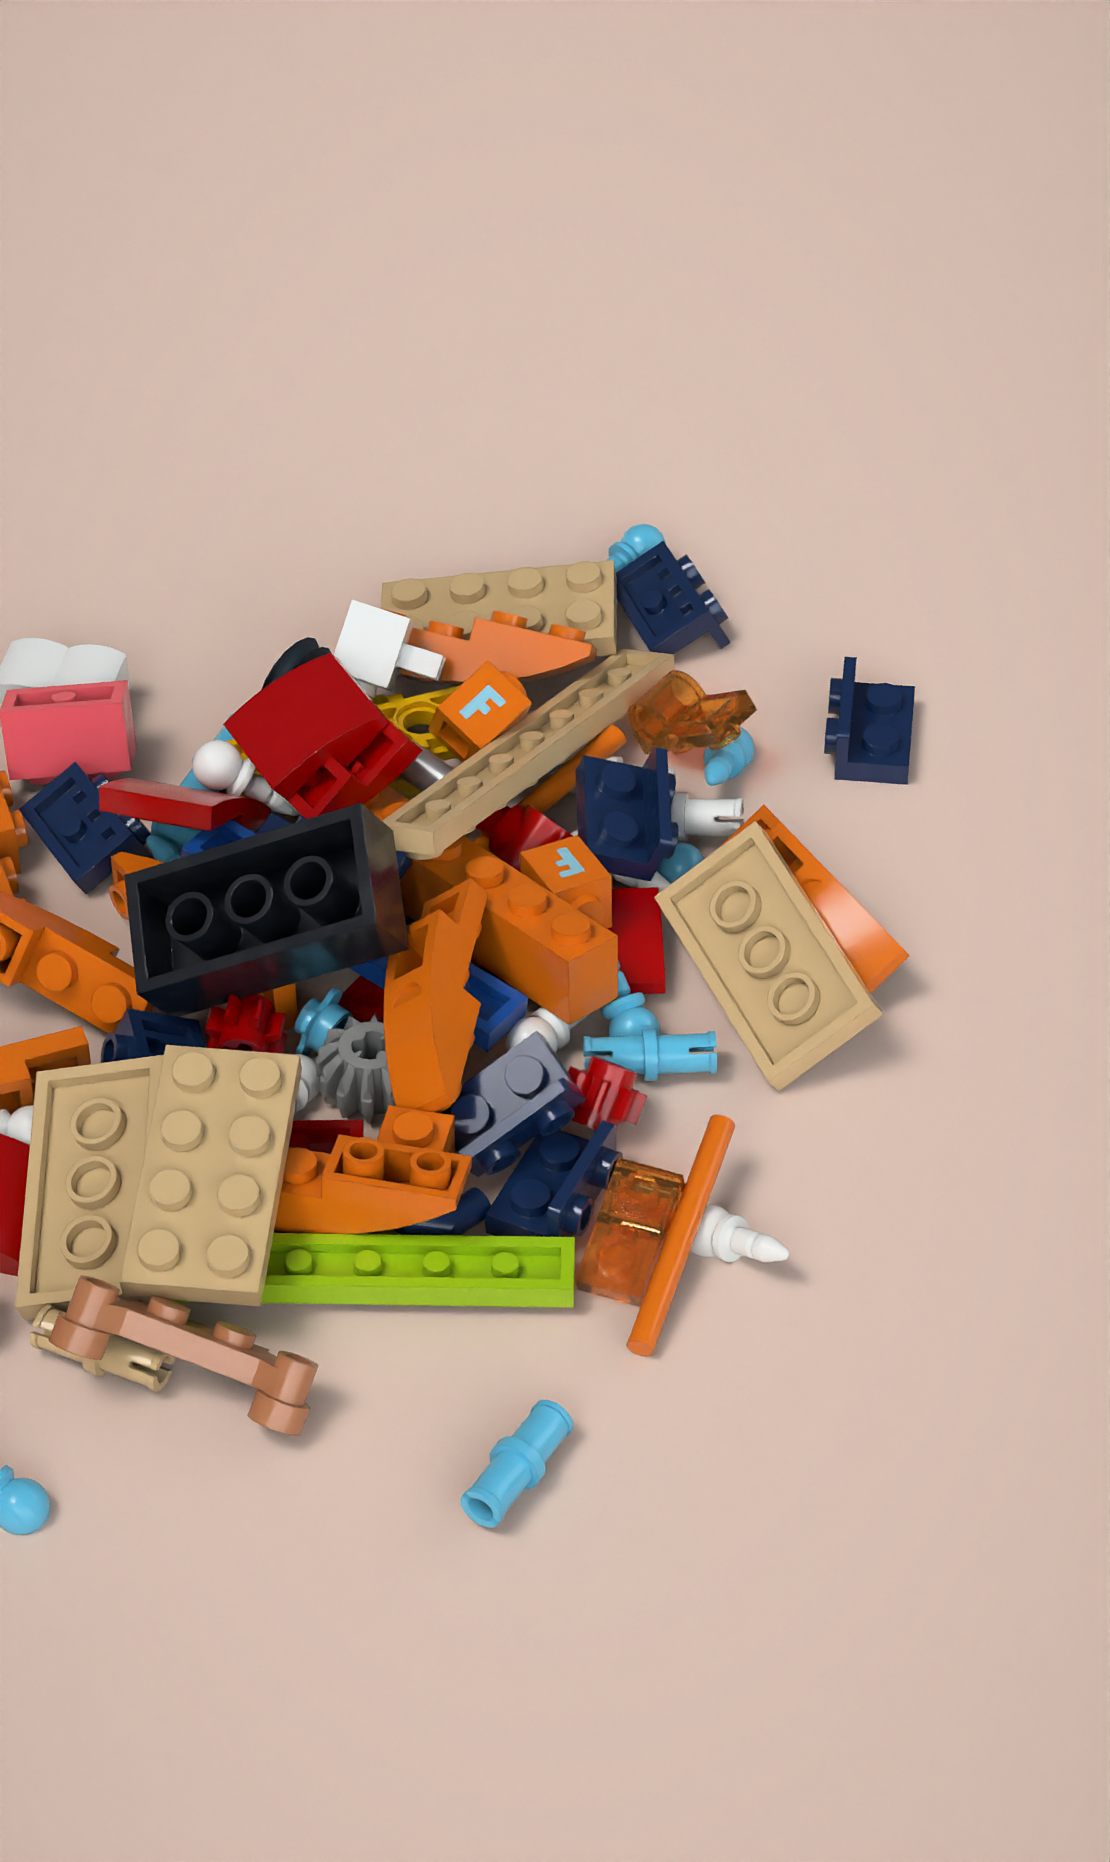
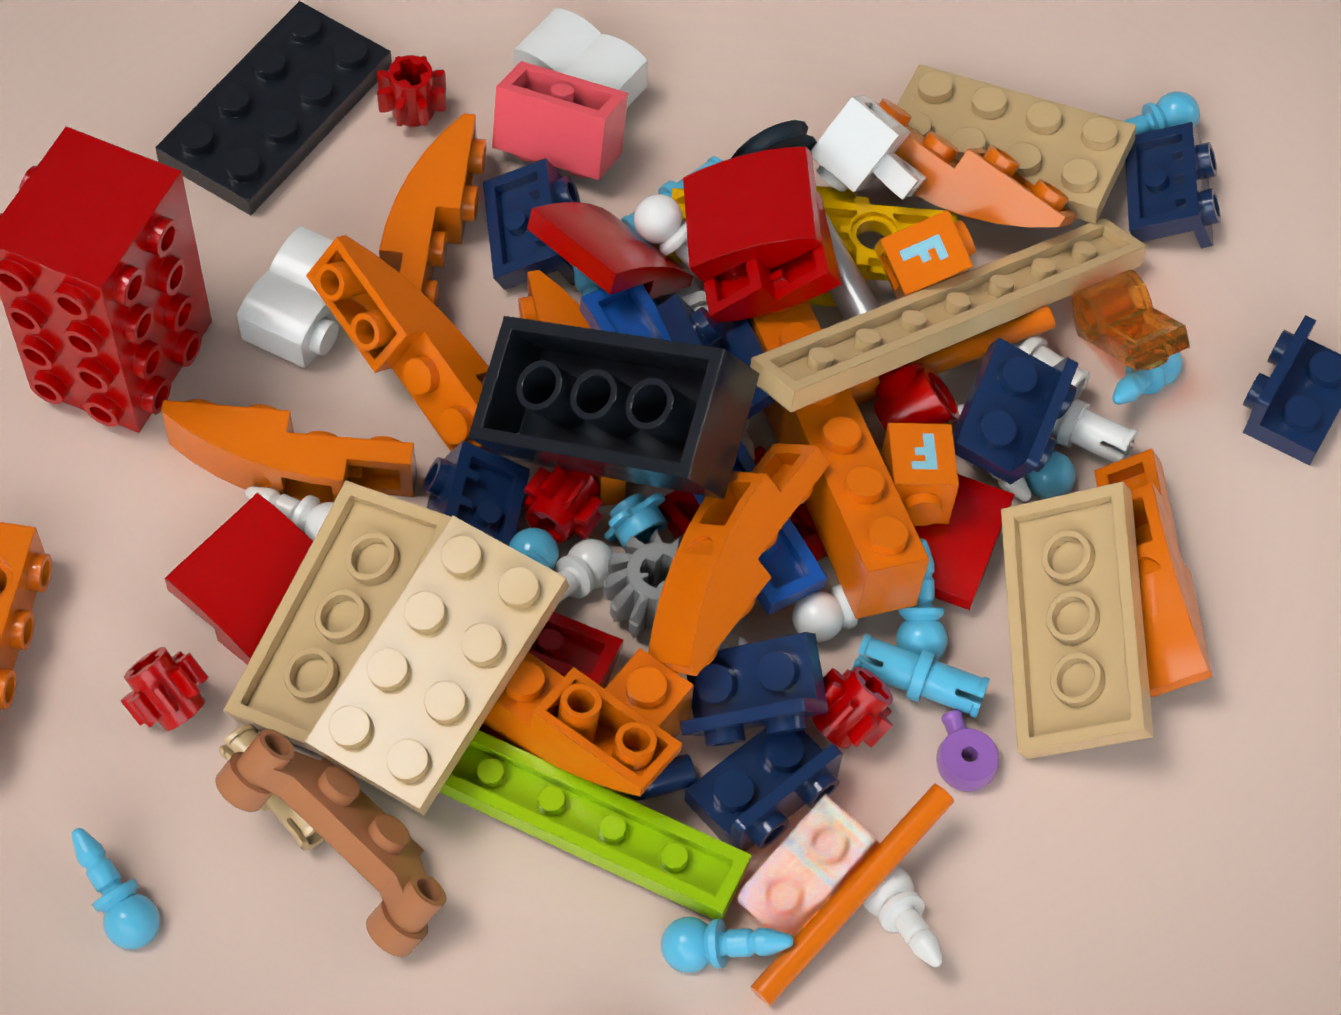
camera: 20 degrees right, 15 degrees up
(556, 1332) = (692, 944): none -> medium azure bar
(723, 1097) = (970, 744): none -> medium lavender piece

